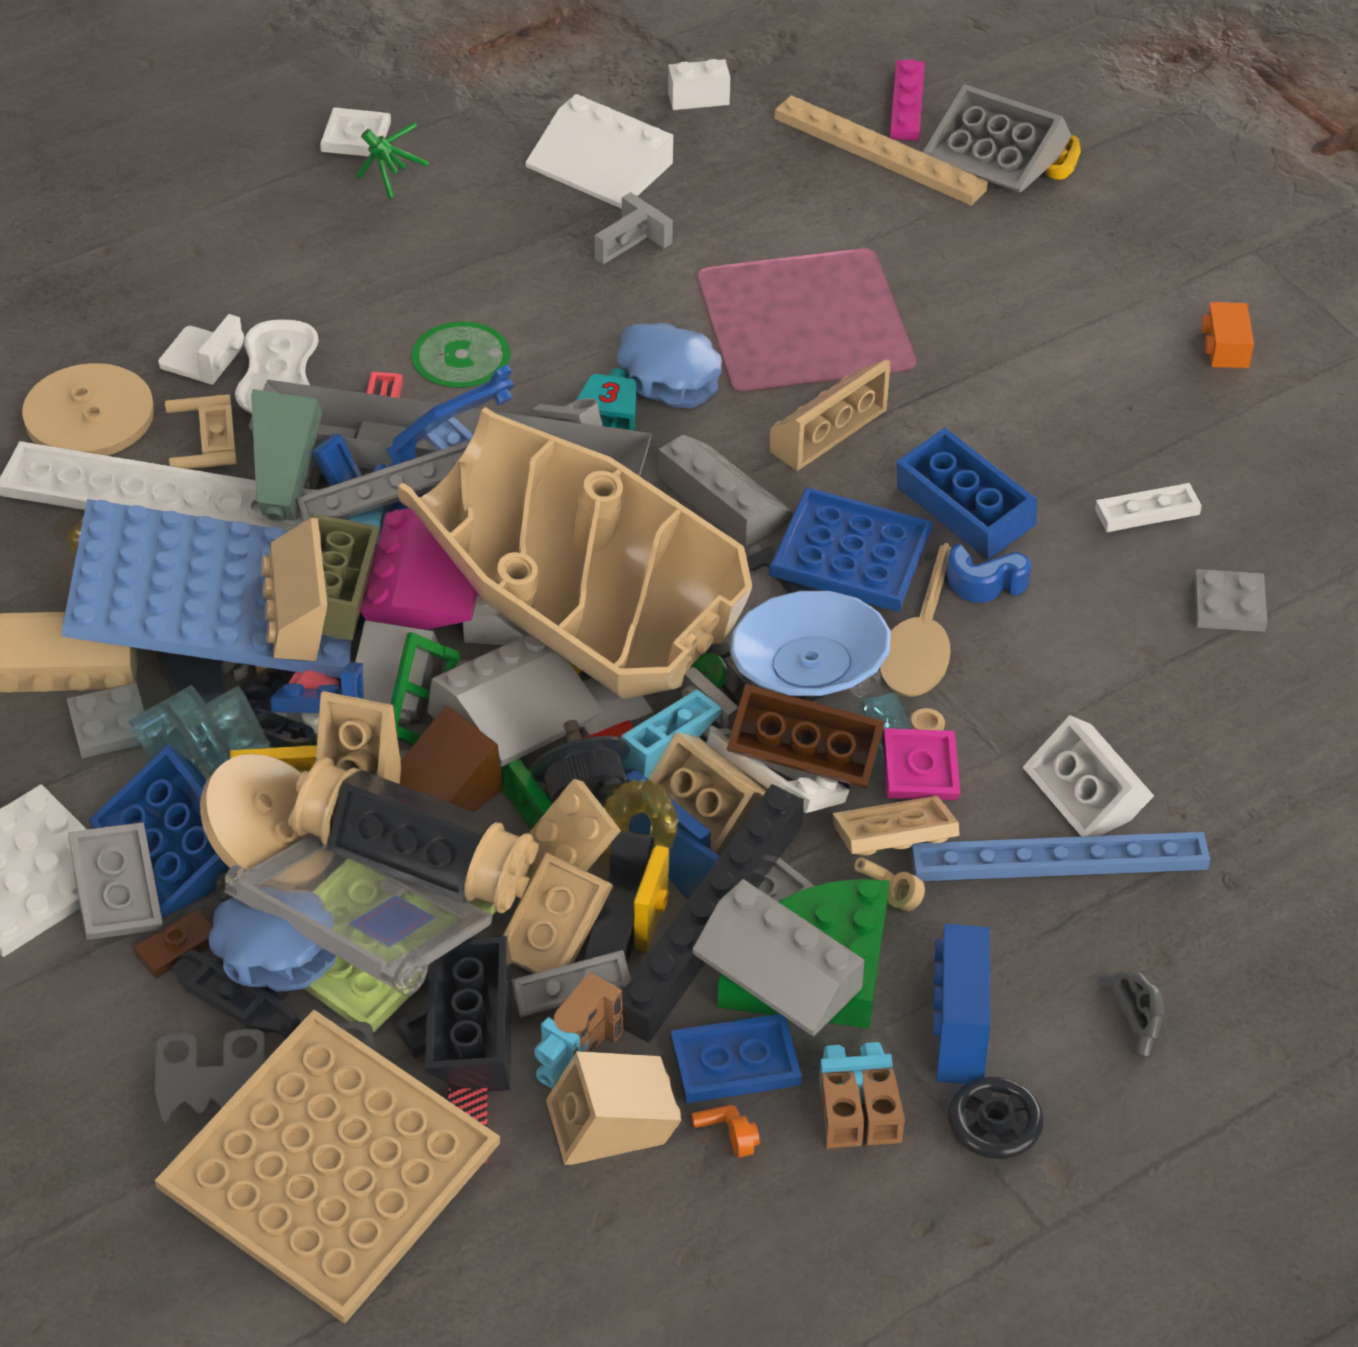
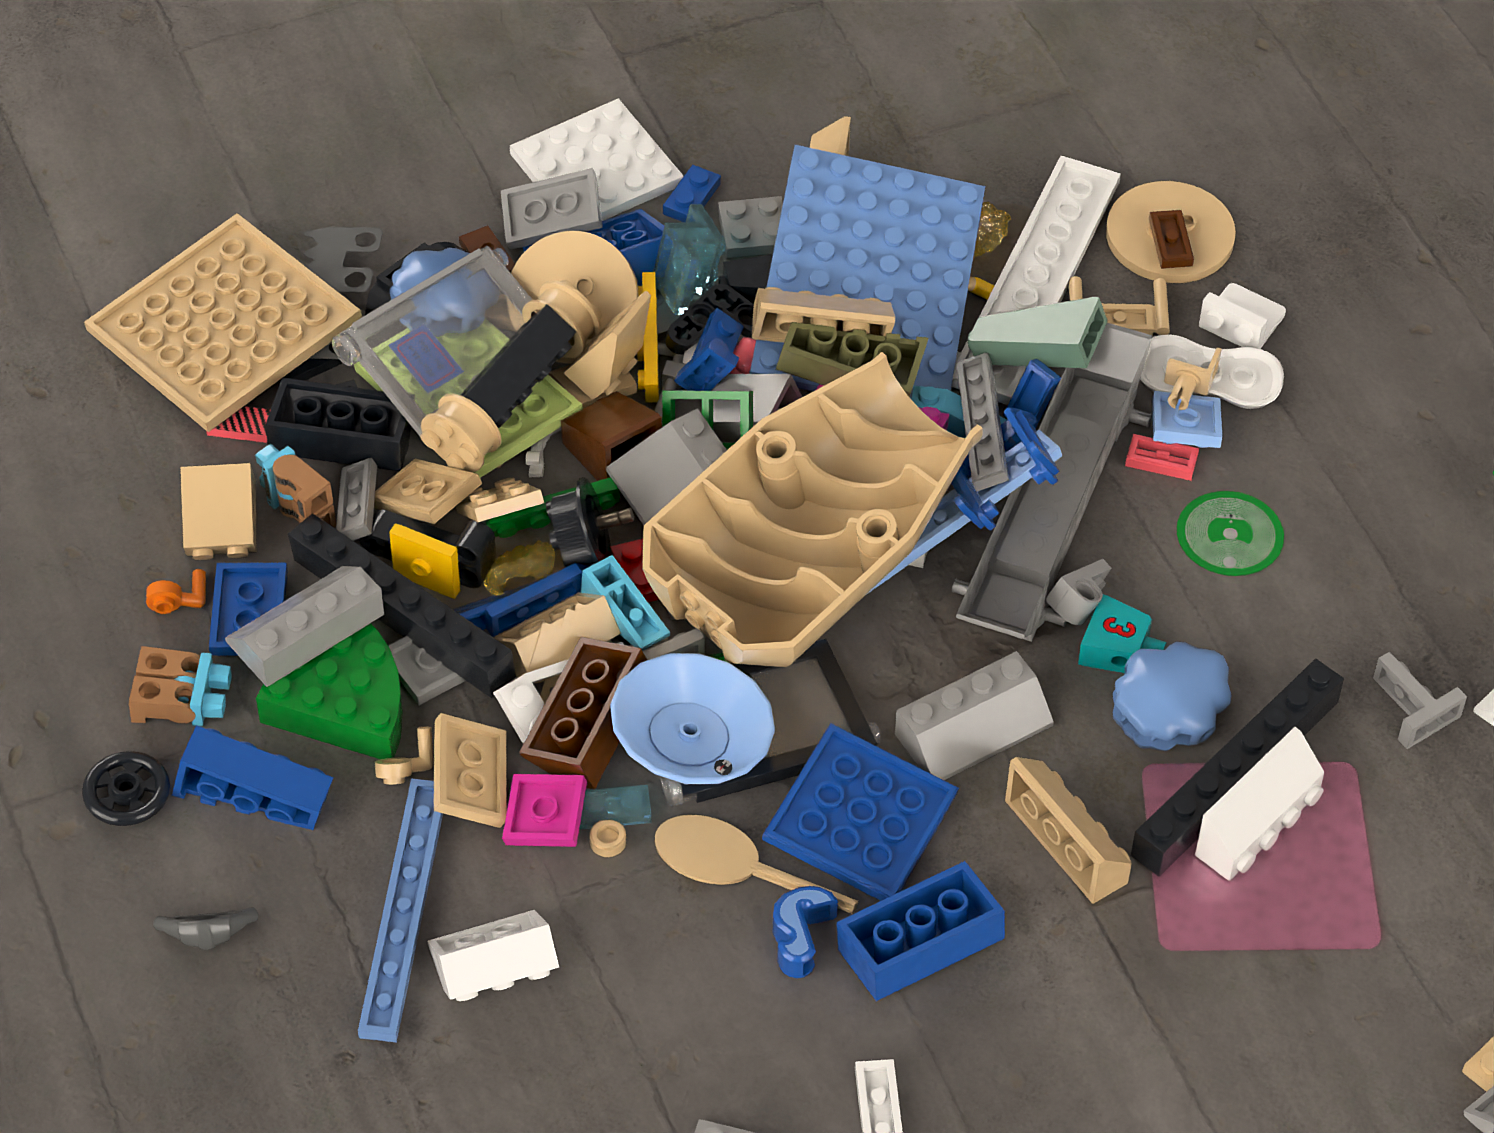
camera: 100 degrees right, 5 degrees up
(64, 778) = (694, 188): none -> blue plate
(114, 395) = (1171, 239): none -> reddish brown plate
(303, 364) = (1189, 379): none -> tan bracket
(346, 370) = (1195, 426): none -> light blue plate
(735, 320) = (1180, 818): none -> black brick
(774, 305) = (1260, 806): none -> white slope
(866, 607) = (723, 767): none -> black piece

